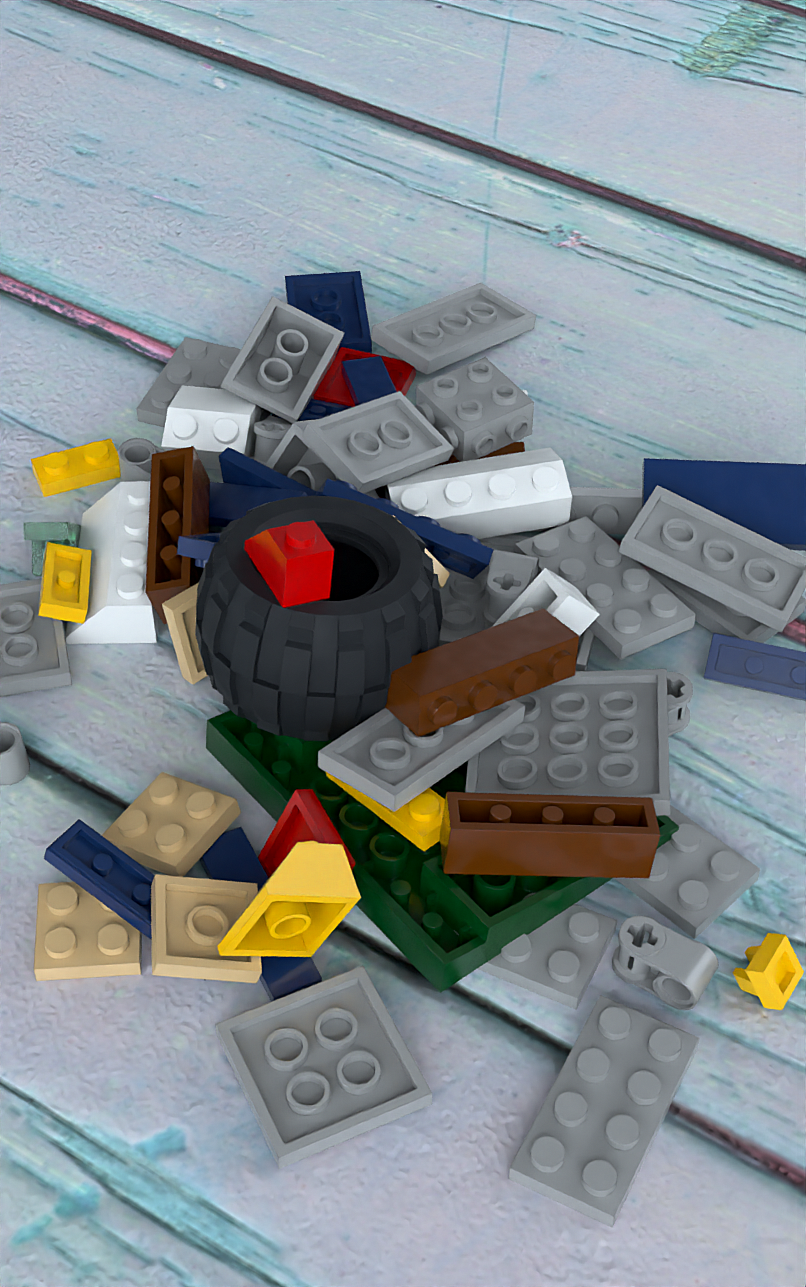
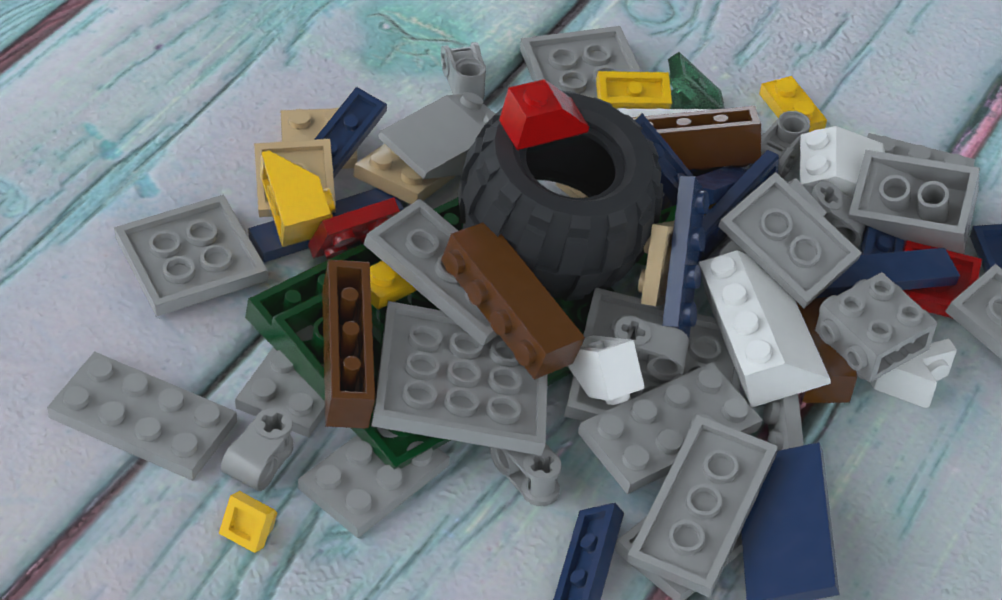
camera: 85 degrees right, 0 degrees up
(139, 759) = (438, 135): none -> light grey slope

